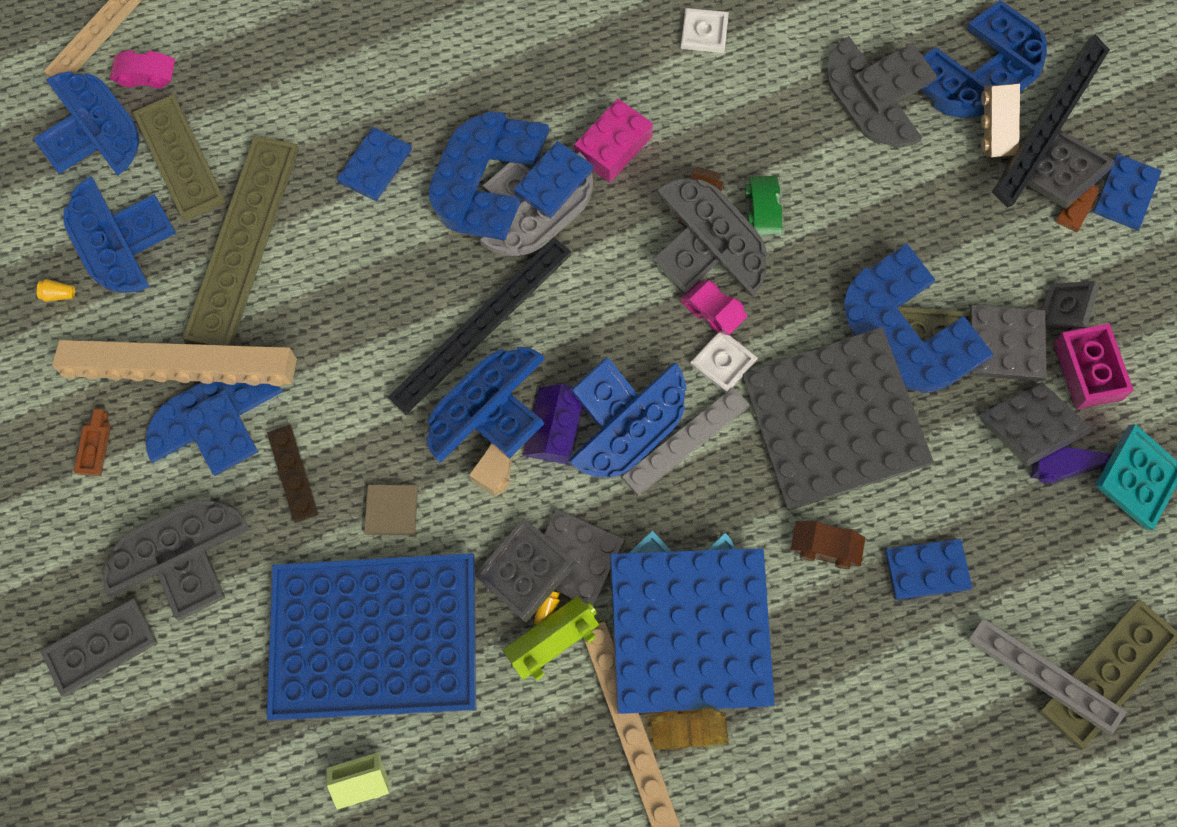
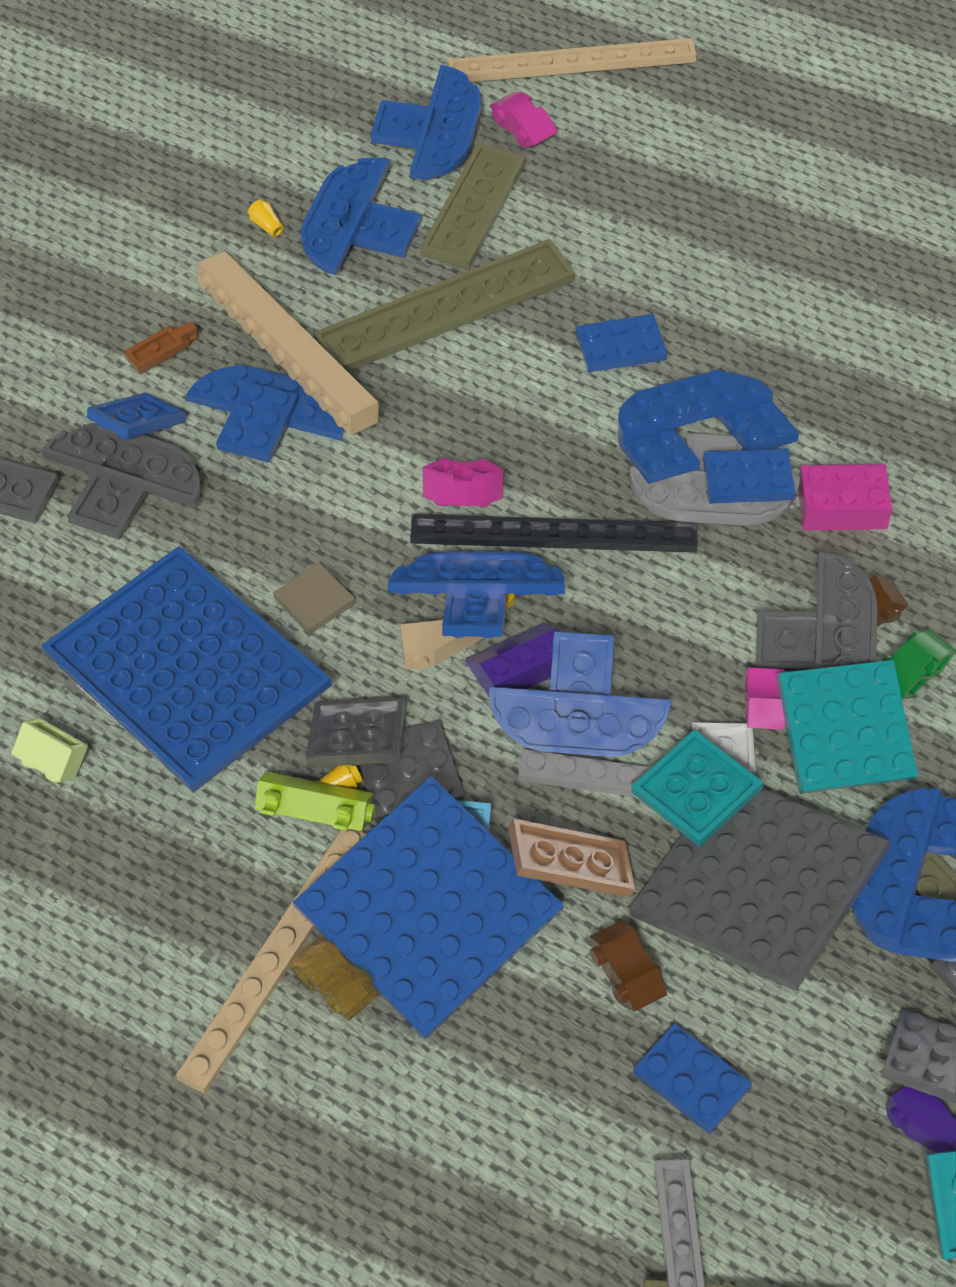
camera: 45 degrees right, 15 degrees down
(140, 509) = (135, 415): none -> blue plate
(292, 473) = (274, 503): dark brown plate -> none
(394, 347) = (462, 483): none -> dark pink brick
(733, 516) = (571, 858): none -> medium nougat plate
(747, 400) = (697, 787): none -> teal plate
(777, 280) = (846, 726): none -> teal plate

